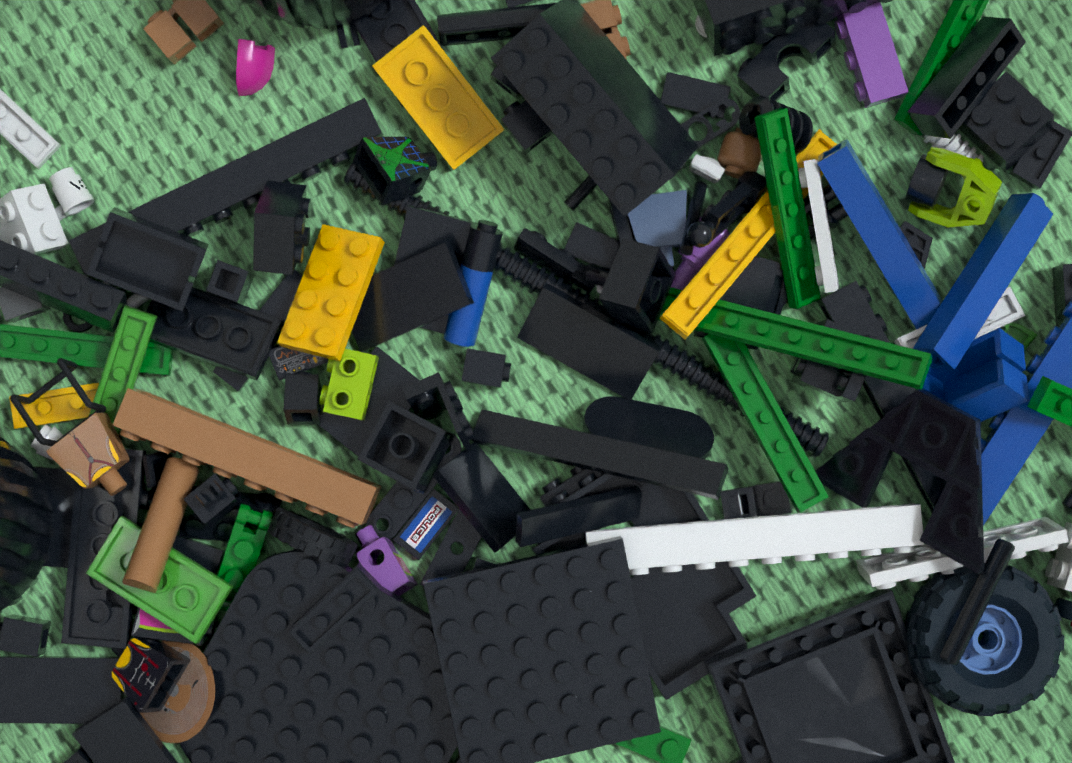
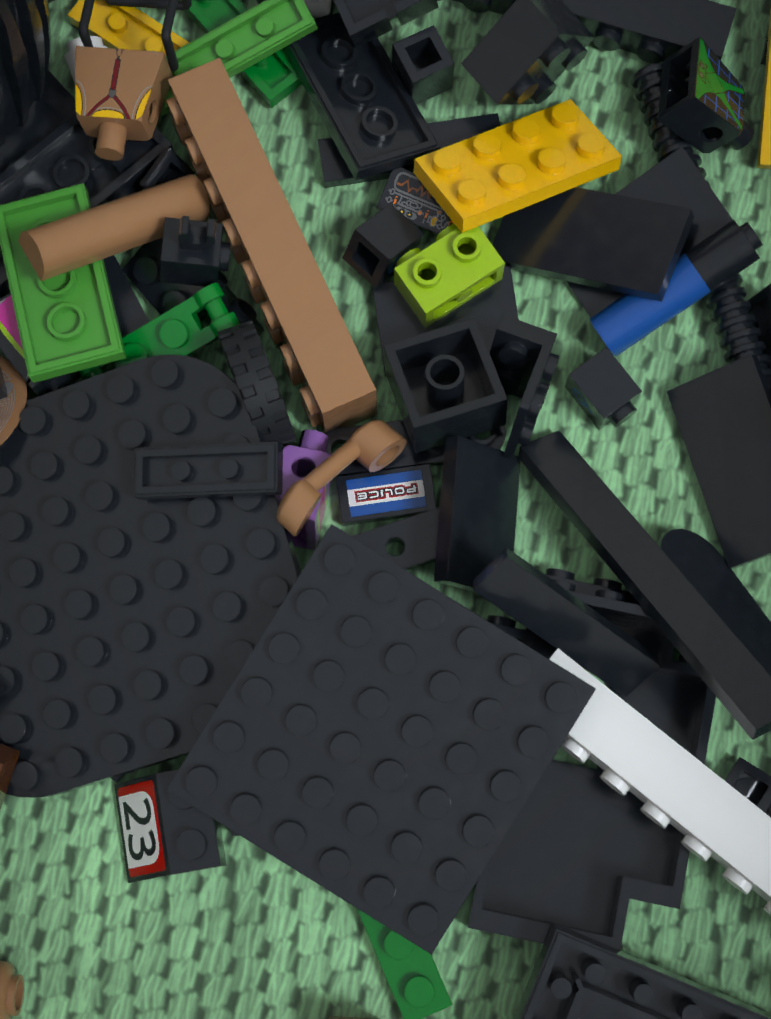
camera: 45 degrees right, 10 degrees down
(397, 512) = (371, 445): none -> medium nougat piece

